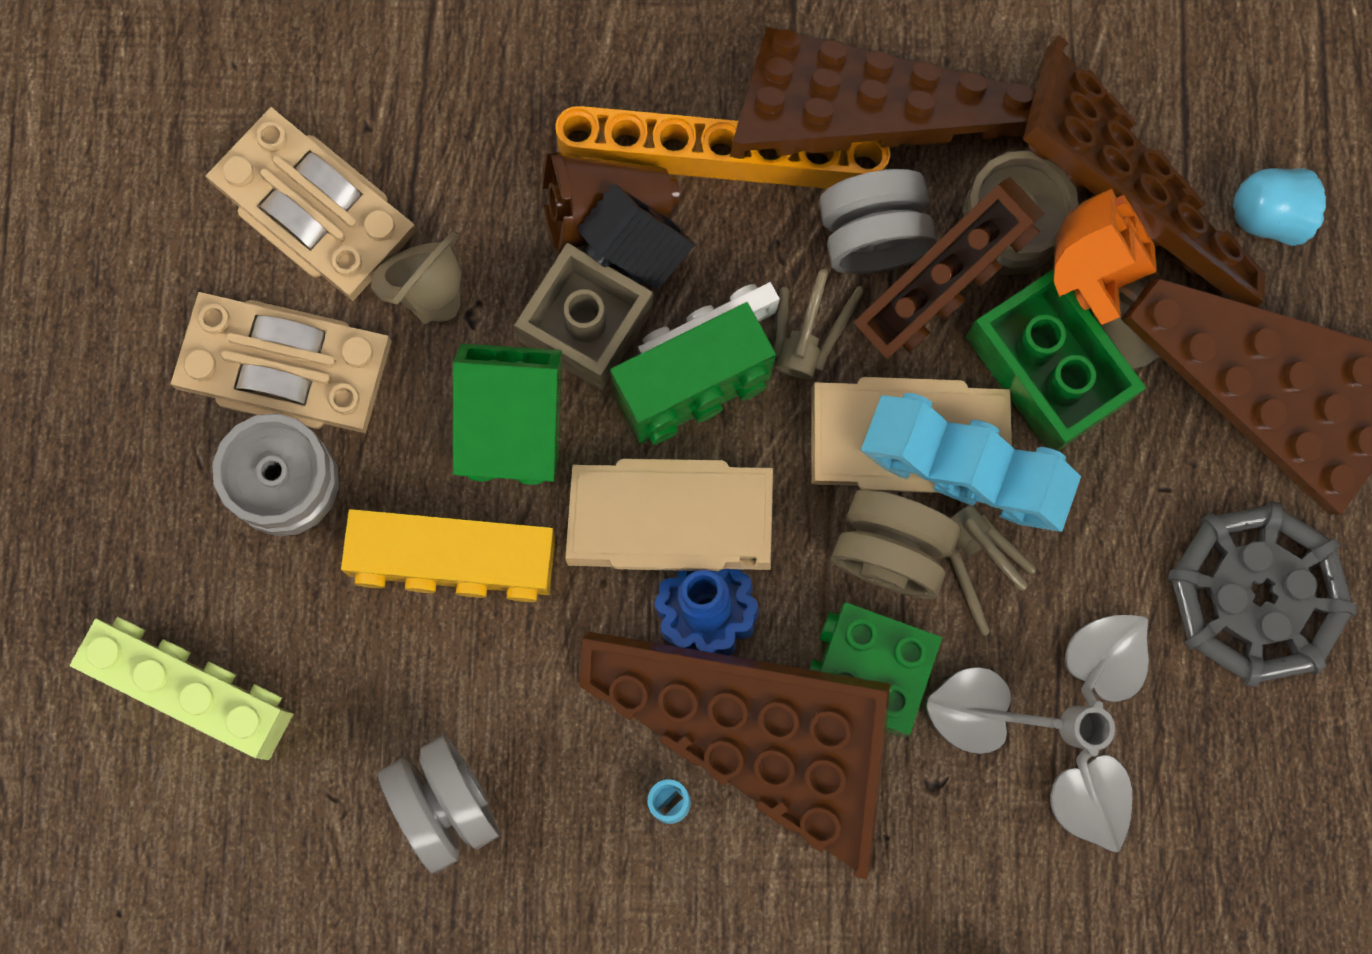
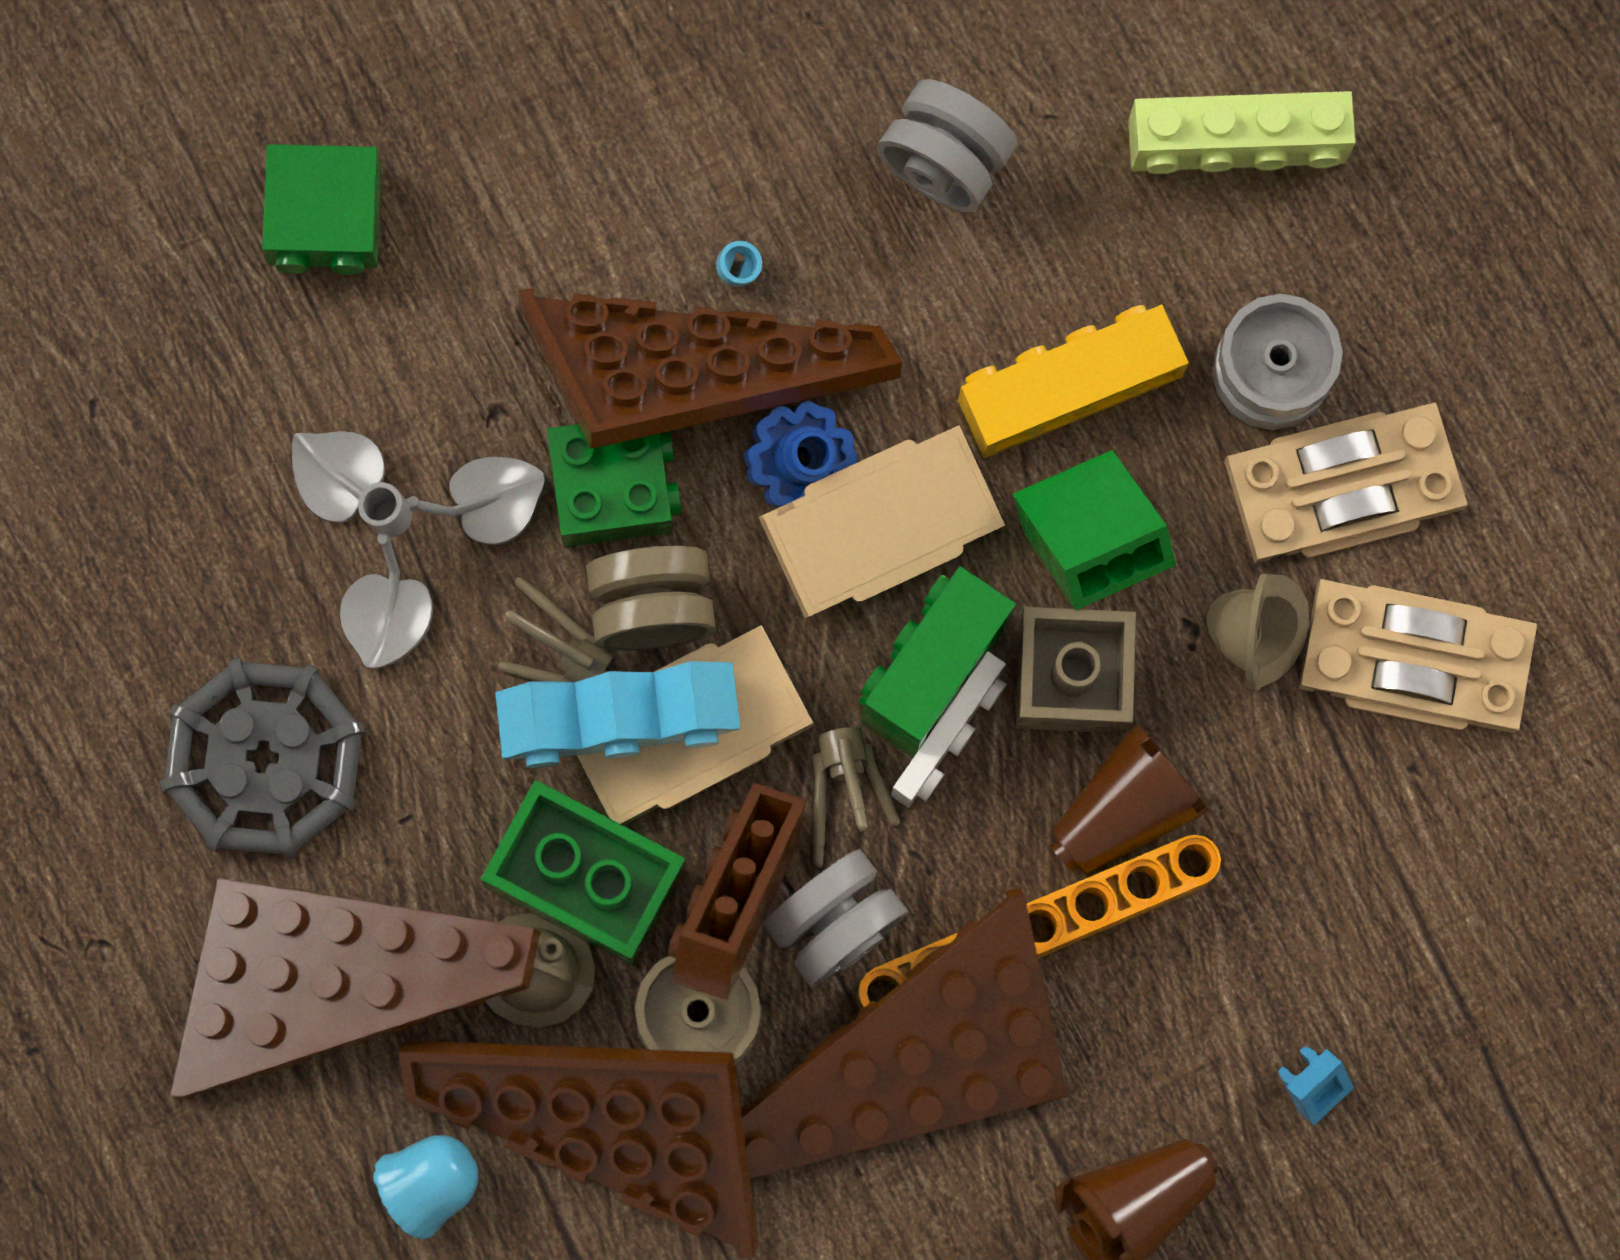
camera: 150 degrees right, 0 degrees up
(634, 238) = (1068, 768): black brick -> none
(1101, 251) = (597, 983): orange brick -> none

